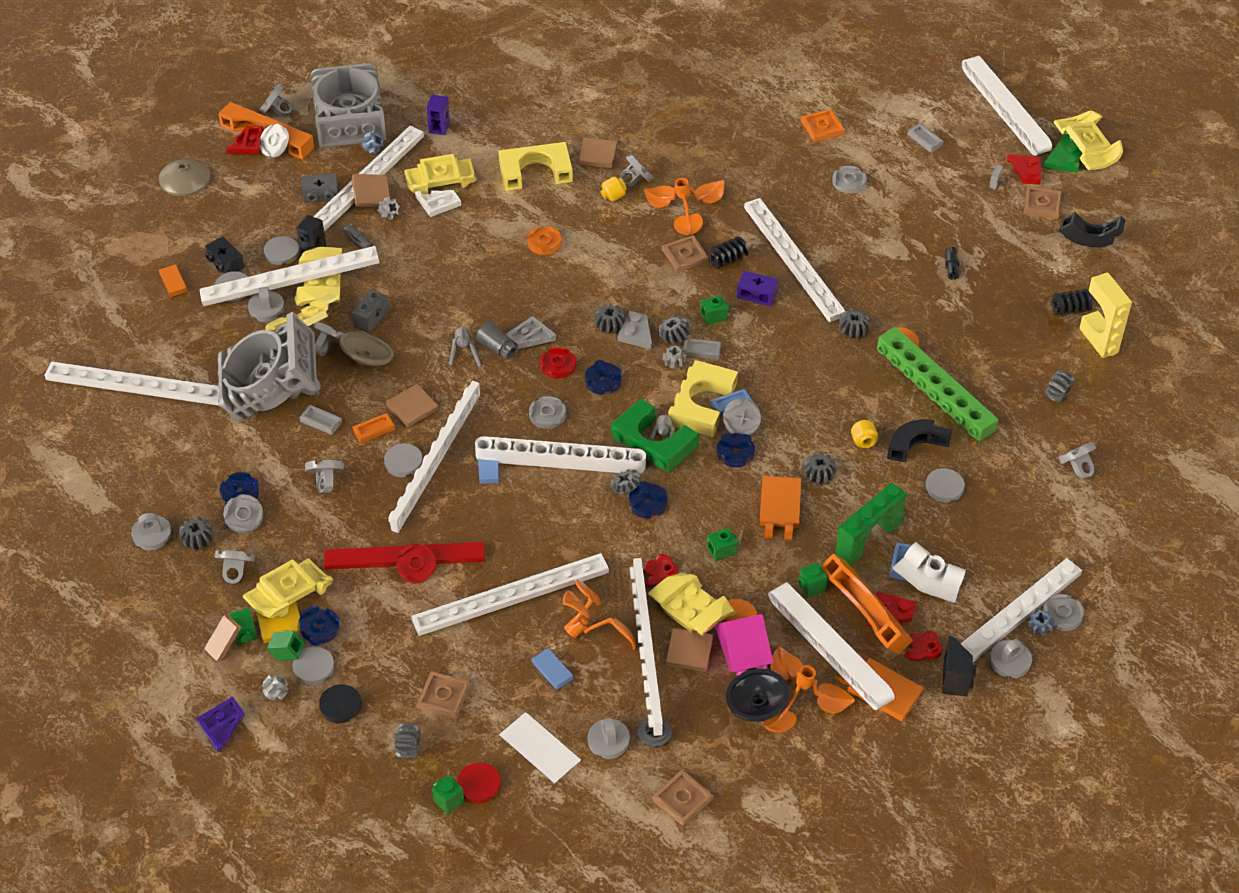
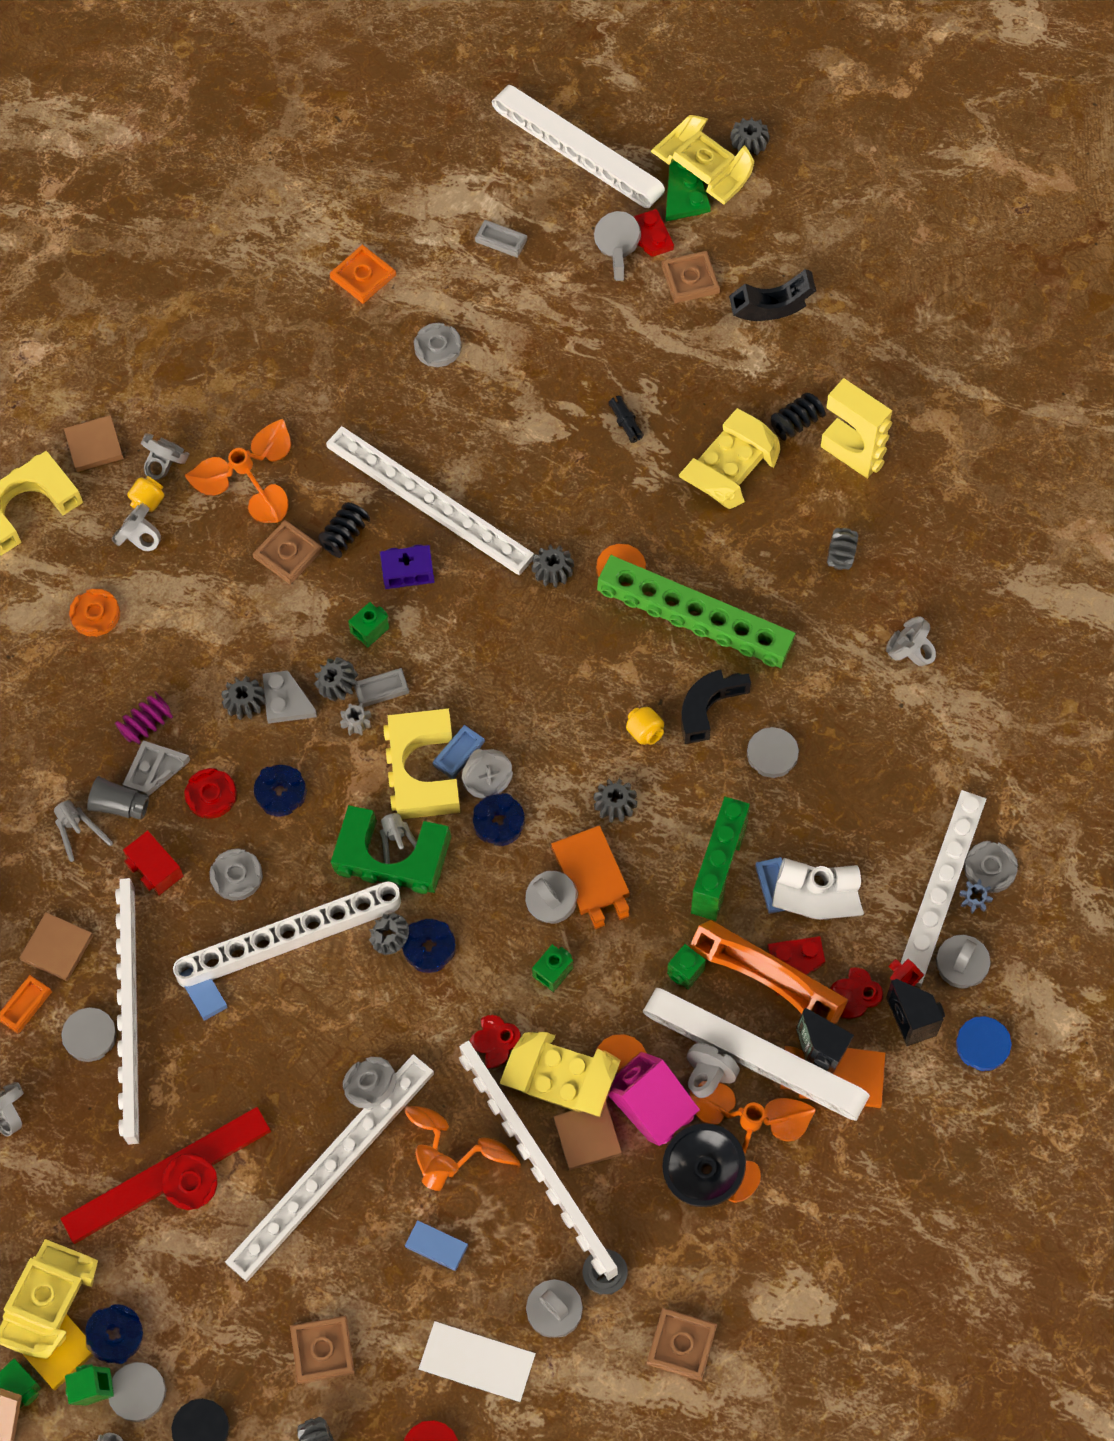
camera: 25 degrees left, 15 degrees up
(498, 383) = (153, 863): none -> red brick
(540, 305) = (144, 719): none -> magenta piece
(563, 557) = (369, 1082): none -> light grey tile
(594, 201) = (134, 527): none -> light grey tile
(744, 504) = (551, 897): none -> light grey tile
(794, 641) = (711, 1067): none -> light grey tile
(882, 653) = (822, 1040): none -> black slope
(966, 641) = (906, 972): none -> red tile
(998, 713) = (983, 1043): none -> blue tile
(1006, 156) = (616, 231): none -> light grey tile
(1012, 310) = (732, 458): none -> light yellow piece
(1130, 138) = (751, 134): none -> dark grey gear

